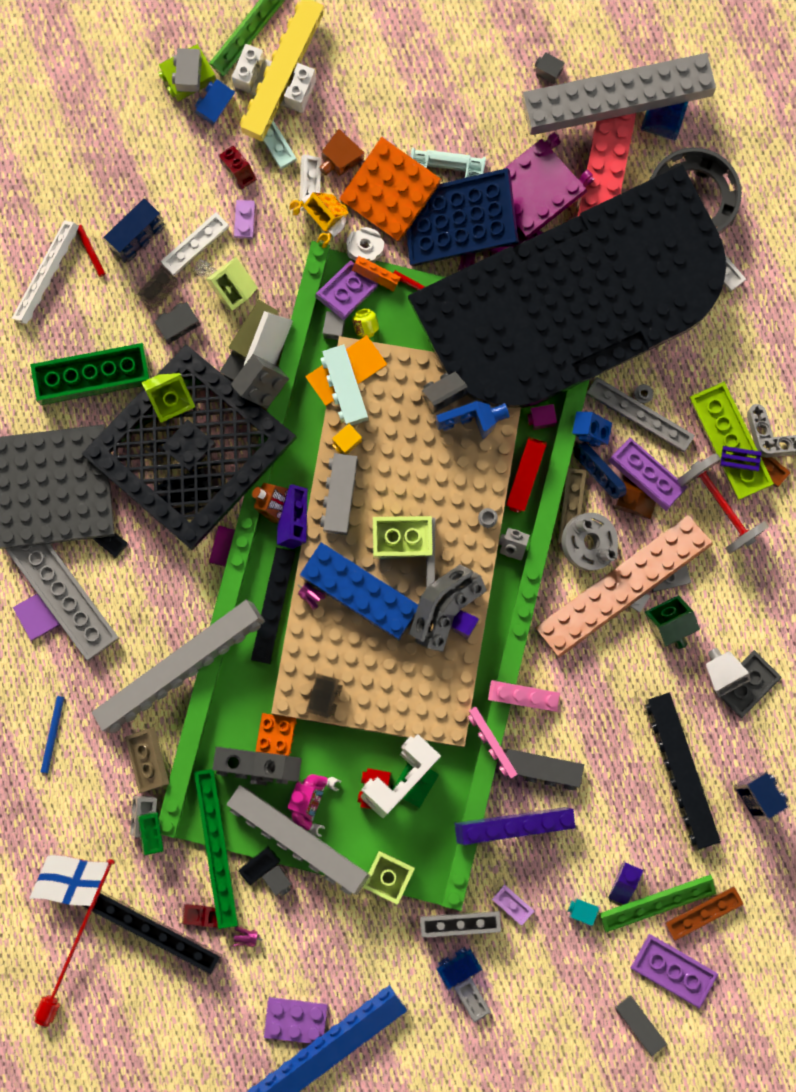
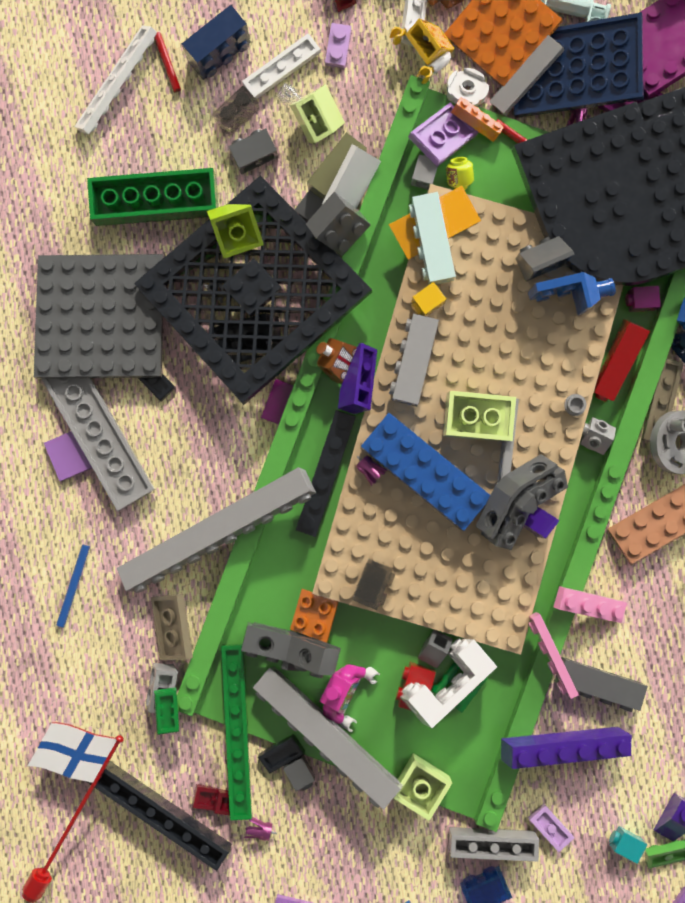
camera: 10 degrees right, 5 degrees up
(388, 751) = (435, 648): none -> dark grey brick
(416, 229) = (527, 75): none -> light grey tile

